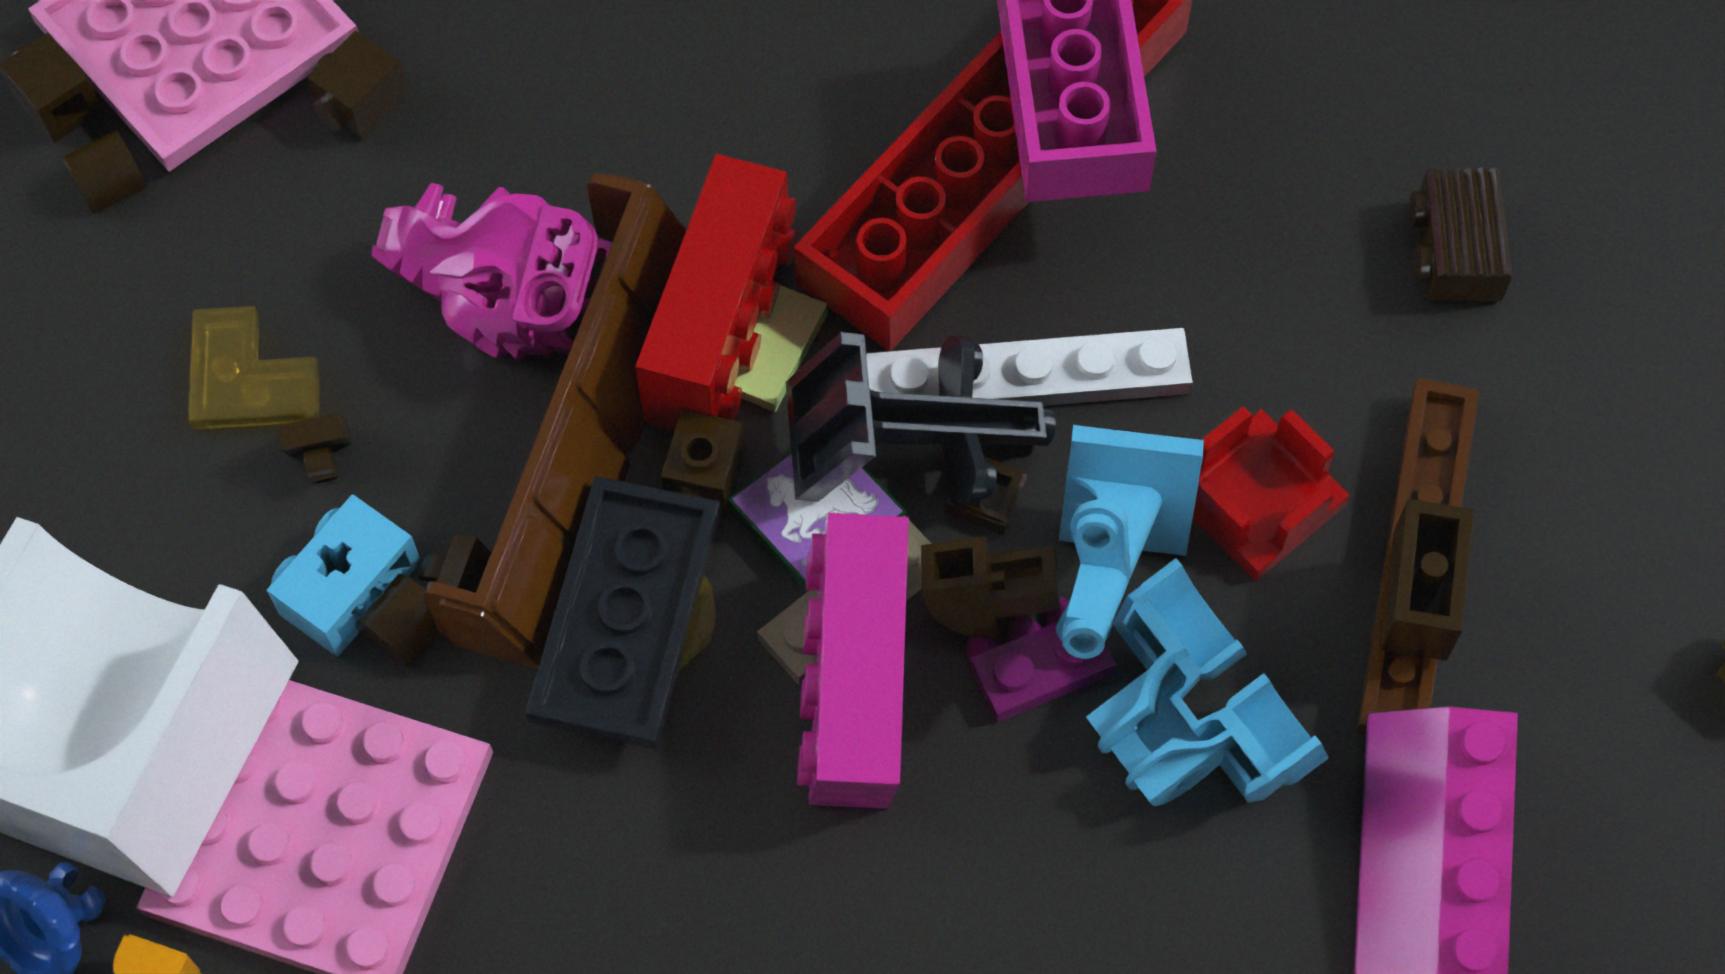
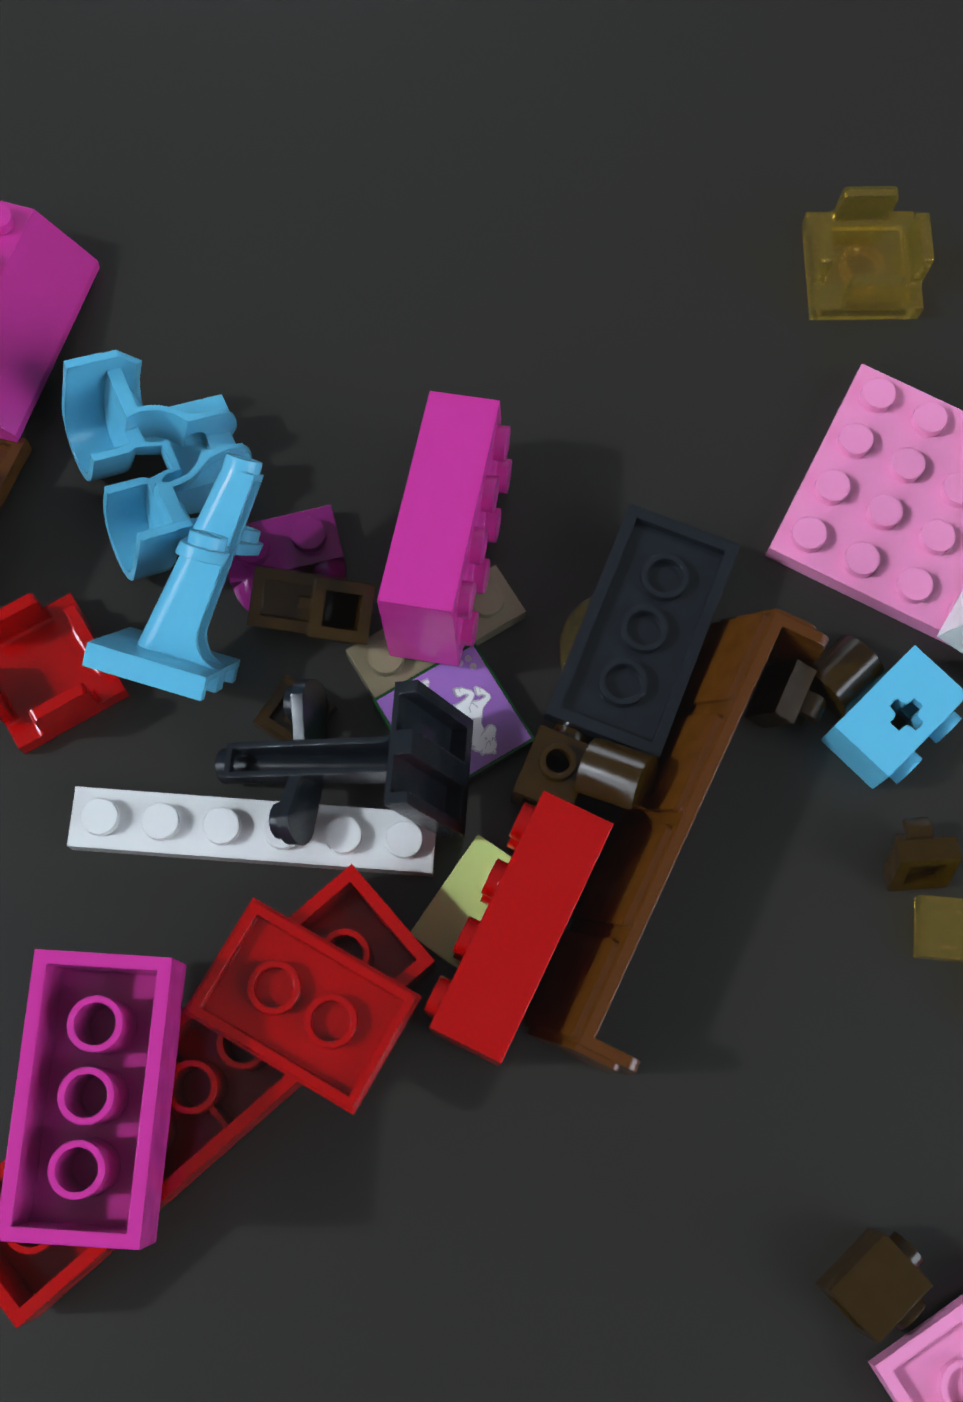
camera: 175 degrees left, 10 degrees up
(504, 275) = (736, 985): dark pink animal -> none
(638, 442) = (616, 773): none -> dark brown brick
(909, 187) = (303, 1005): none -> red tile

